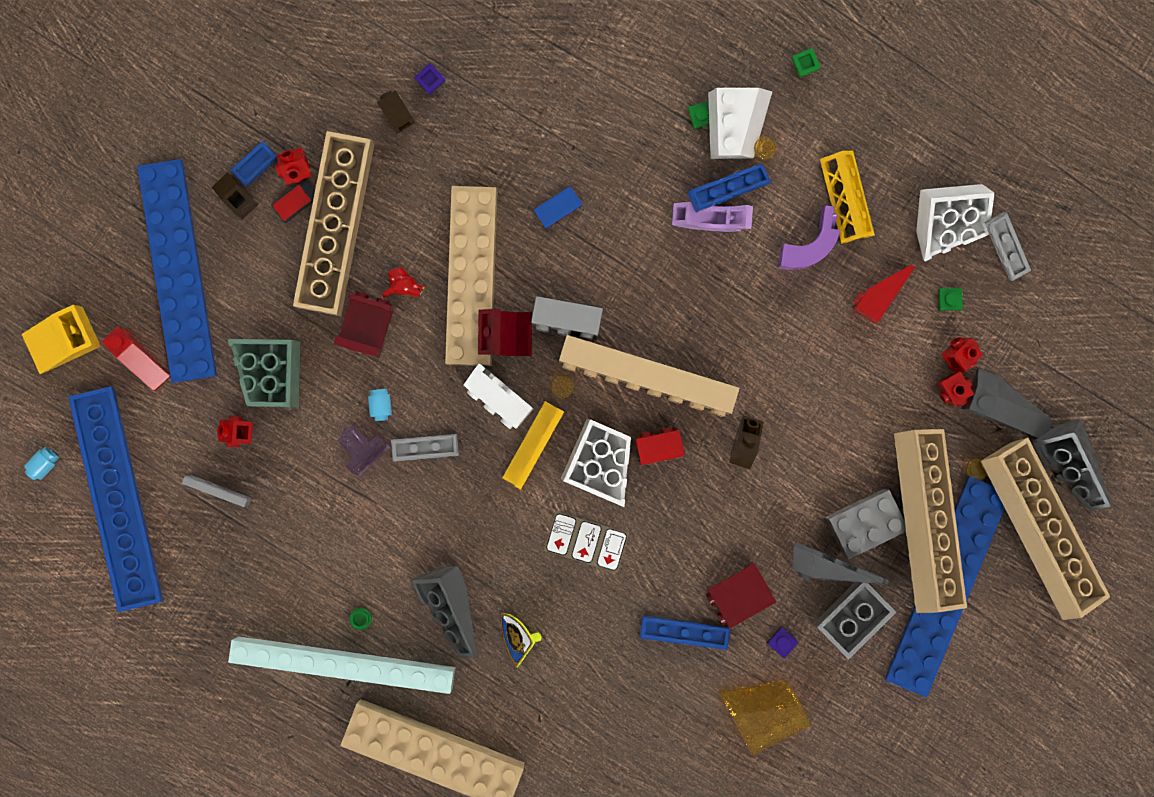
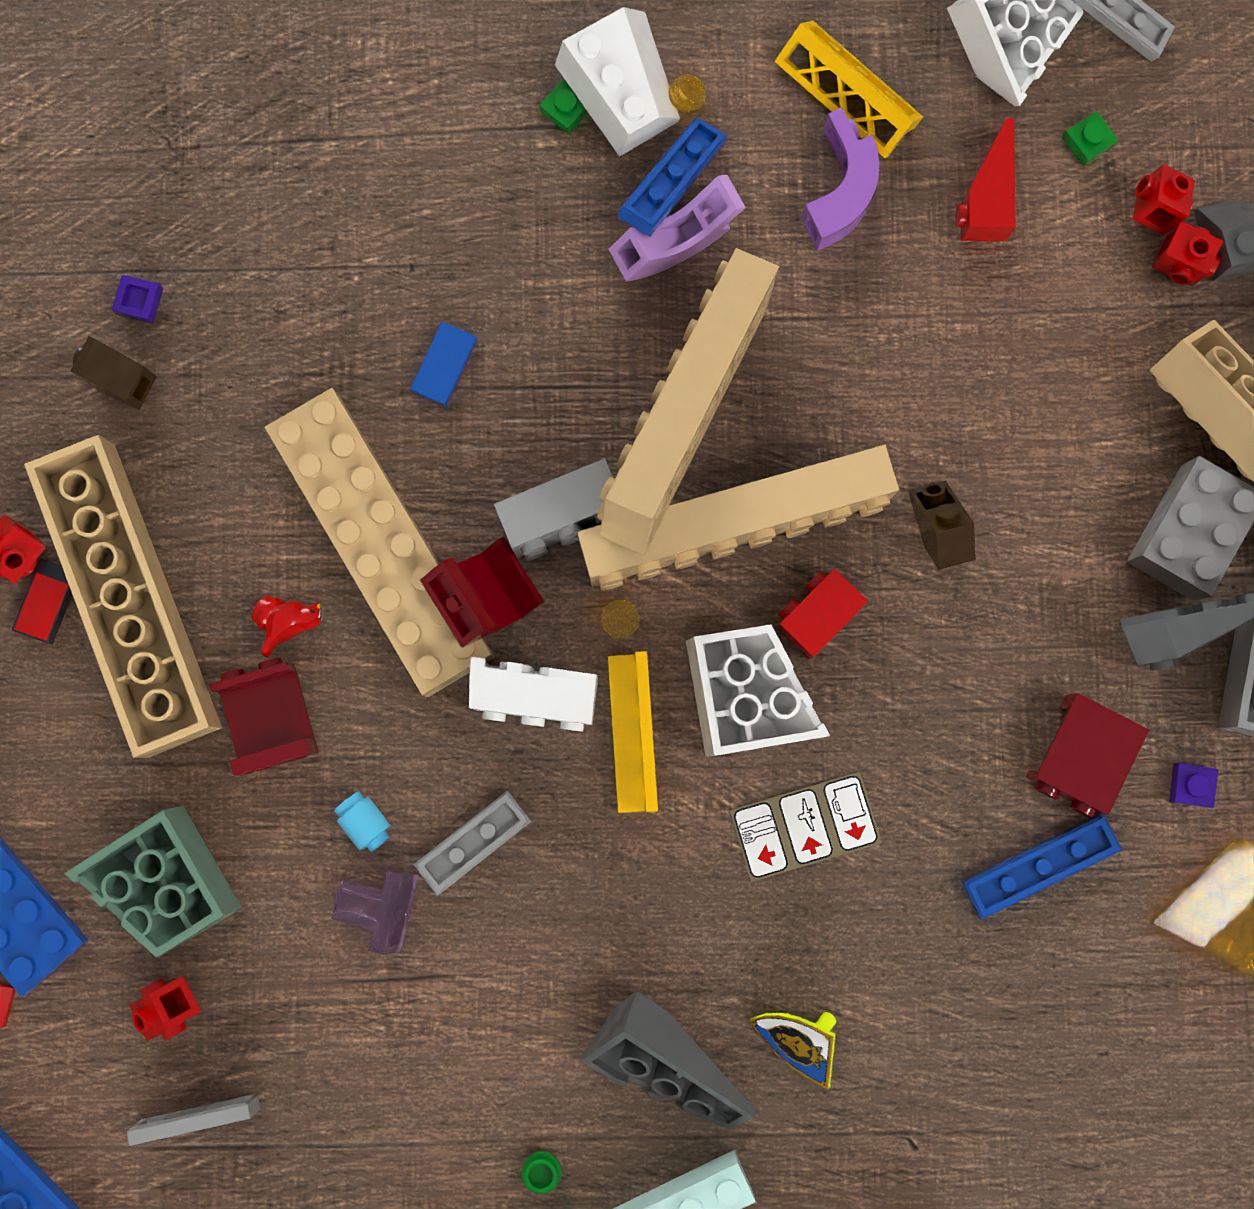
camera: 30 degrees left, 5 degrees down
(659, 306) = (685, 402): none -> tan brick

